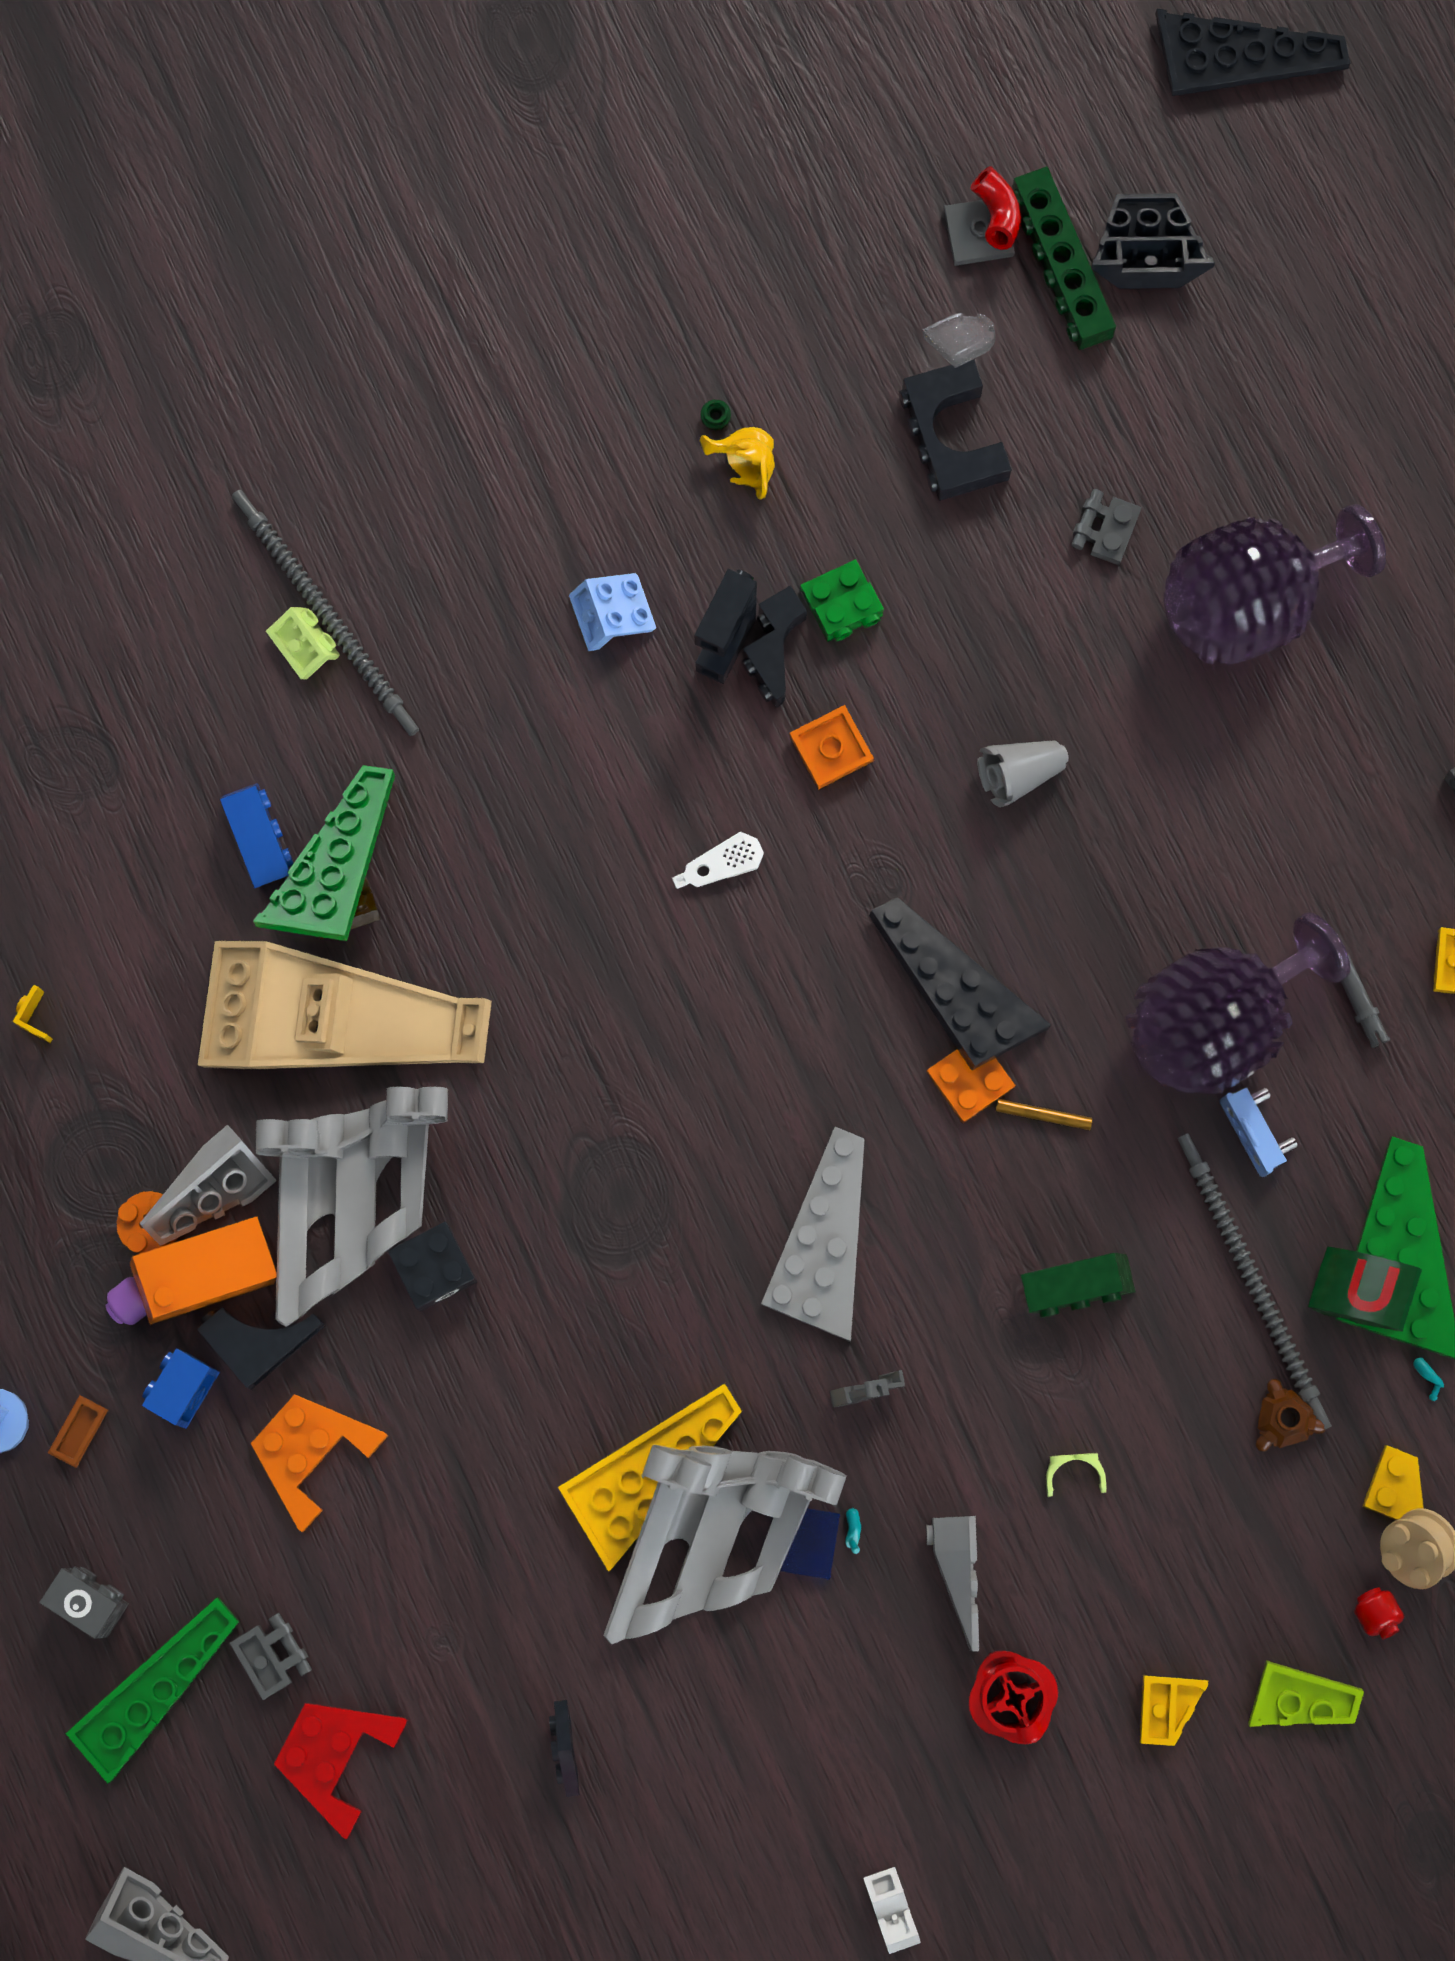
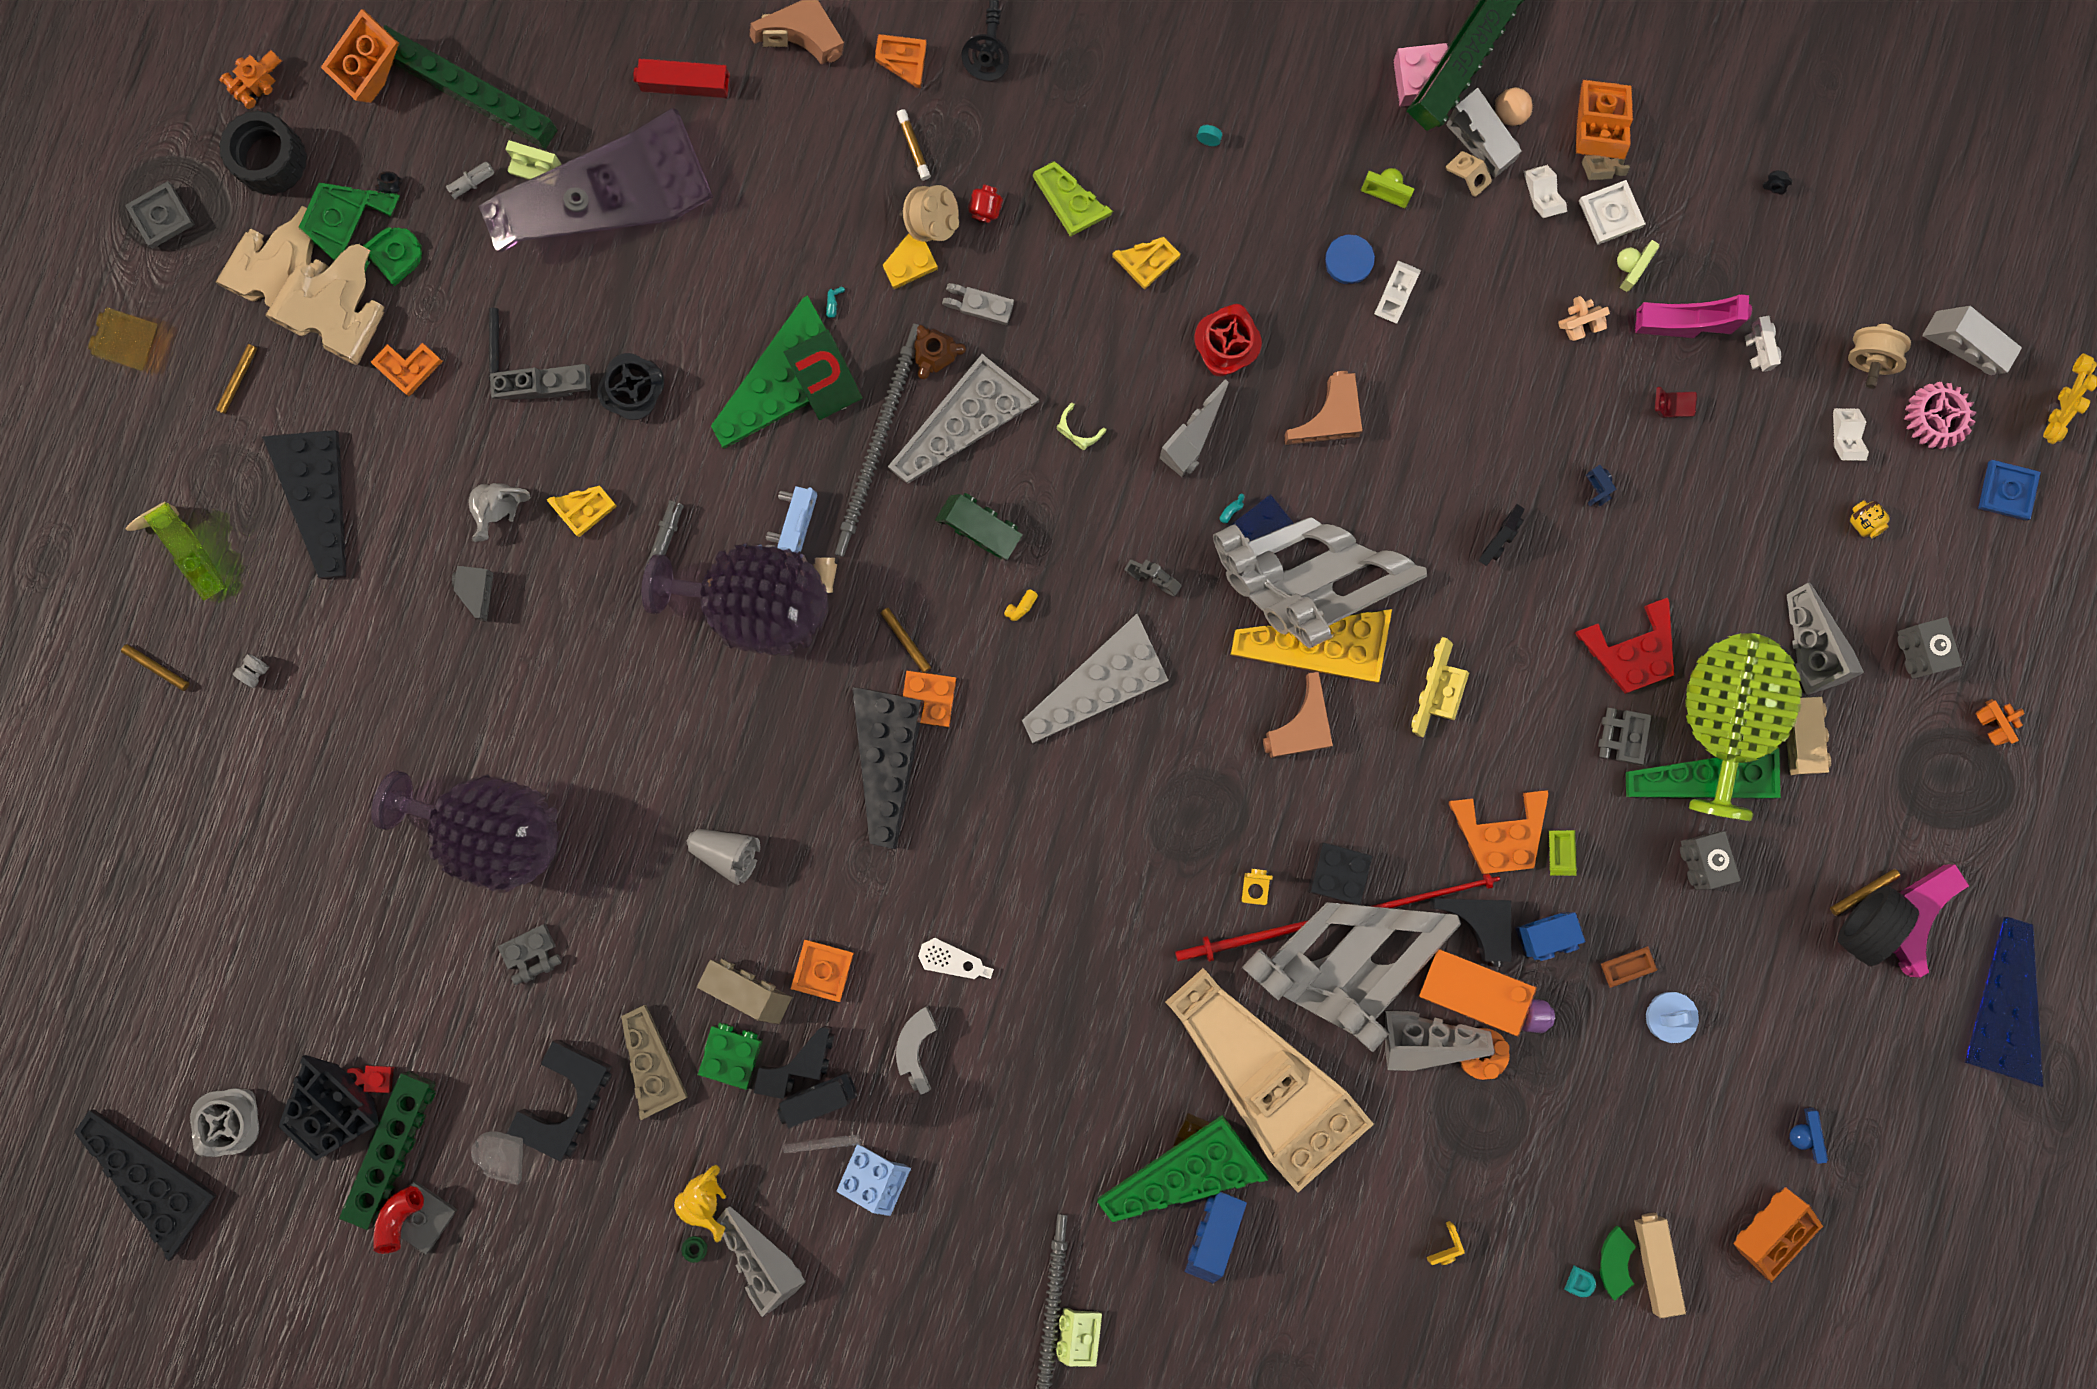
camera: 135 degrees left, 5 degrees up
(89, 1822) = (1808, 739): none -> tan brick
(178, 1776) = (1741, 708): none -> lime plant
(235, 1480) = (1562, 853): none -> lime tile
(445, 1157) = (1210, 948): none -> red piece
(489, 1536) = (1442, 690): none -> light yellow bracket
(509, 1193) = (1256, 877): none -> yellow bracket
(515, 1901) = (1601, 481): none -> dark blue bracket
(586, 1372) = (1307, 730): none -> nougat arch
(631, 453) = (767, 1269): none -> light grey wedge
(688, 600) = (821, 1144): none -> clear bar
(688, 748) = (908, 1047): none -> light grey arch
(835, 1721) = (1338, 417): none -> nougat arch
(882, 664) = (744, 992): none -> dark tan wedge
(897, 527) = (652, 1068): none -> dark tan wing
(963, 1247) = (1023, 607): none -> yellow arm
(970, 1901) = (1349, 259): none -> blue tile
(1135, 305) = (374, 1078): none -> red plate
(1179, 1106) = (827, 569): none -> tan cone
(1193, 1392) = (972, 409): none -> light grey wing
(1229, 1900) = (1209, 135): none -> teal tile
(1234, 143) = (240, 1122): none -> light grey piece
(1285, 1509) = (980, 304): none -> light grey hinge

